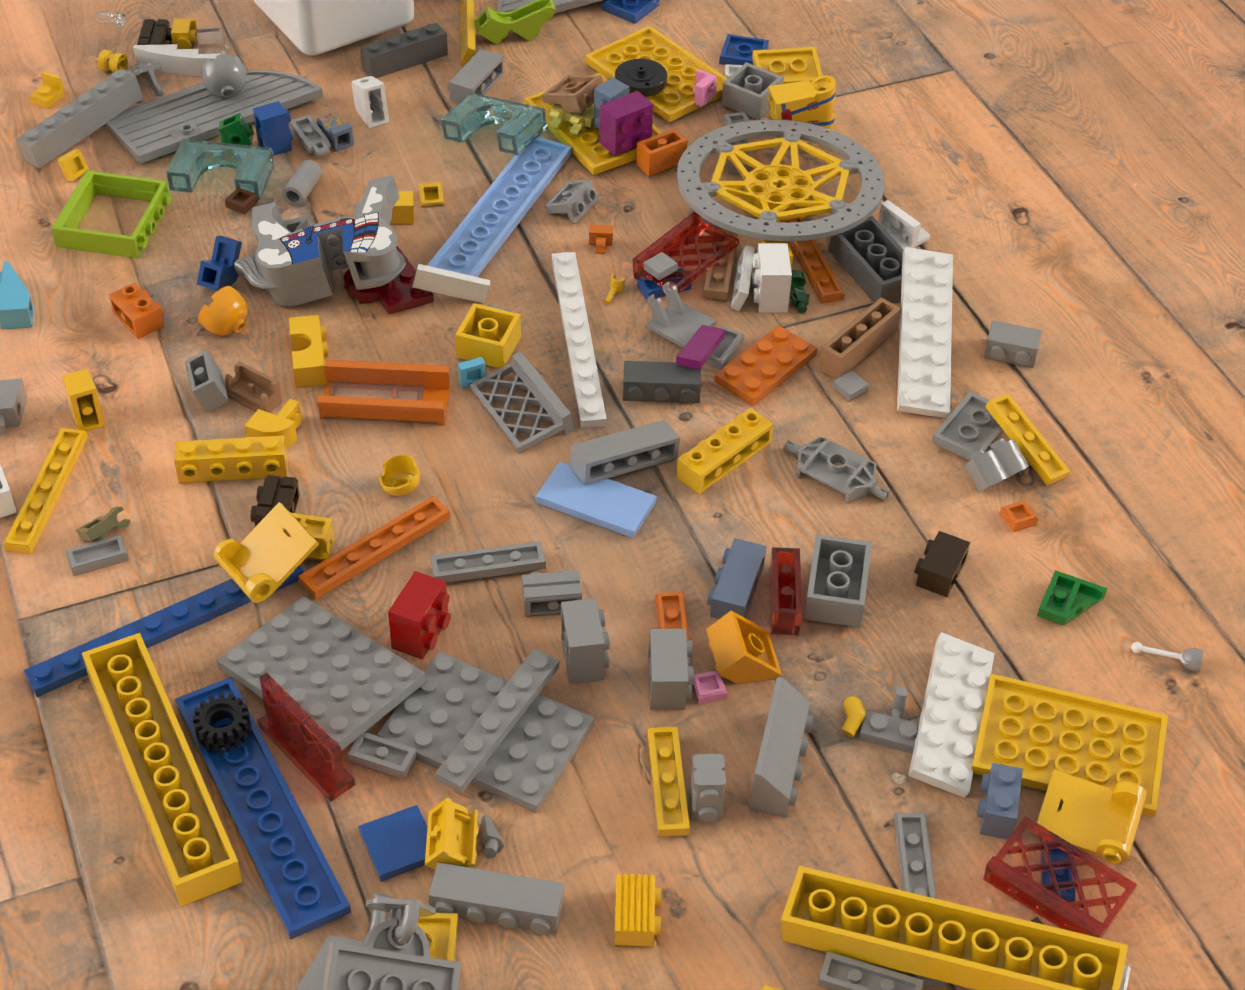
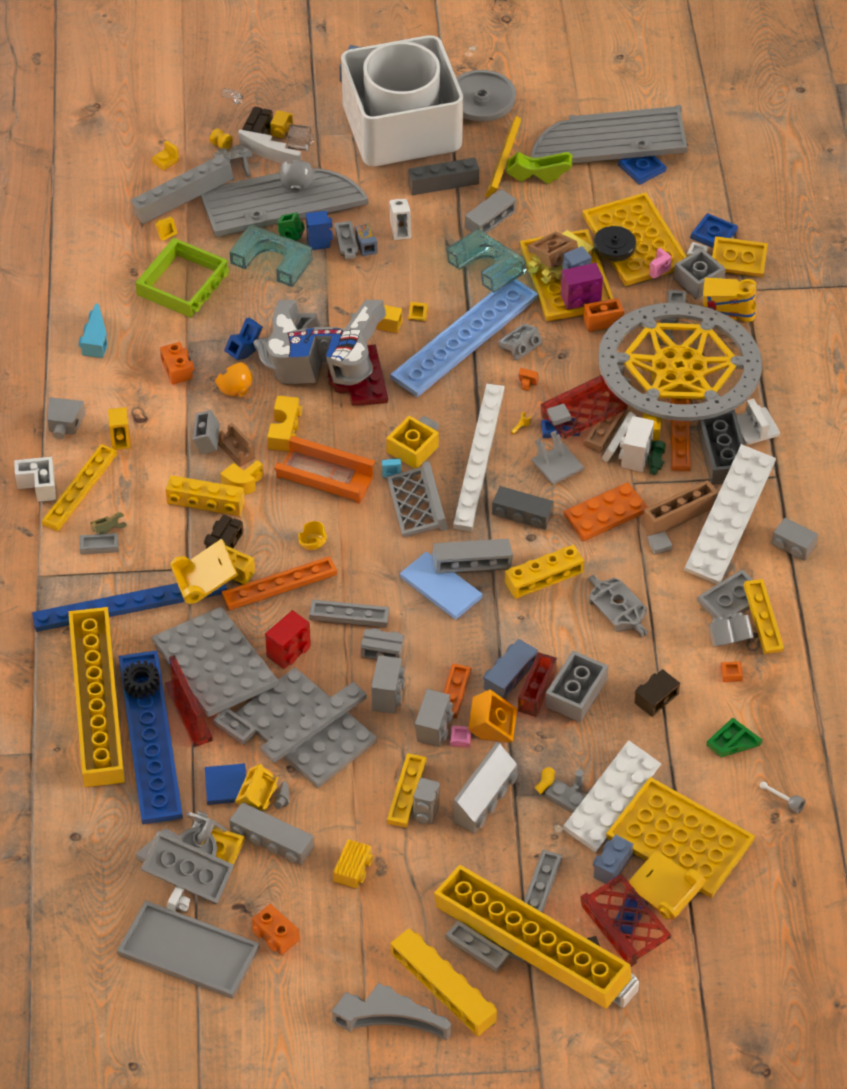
camera: 20 degrees right, 5 degrees up
(241, 200) = (277, 286): reddish brown plate -> none
(302, 183) = (326, 281): light grey brick -> none
(451, 283) = (402, 393): white tile -> none
(700, 347) = (559, 487): magenta tile -> none
(726, 349) = (579, 490): light grey tile -> none

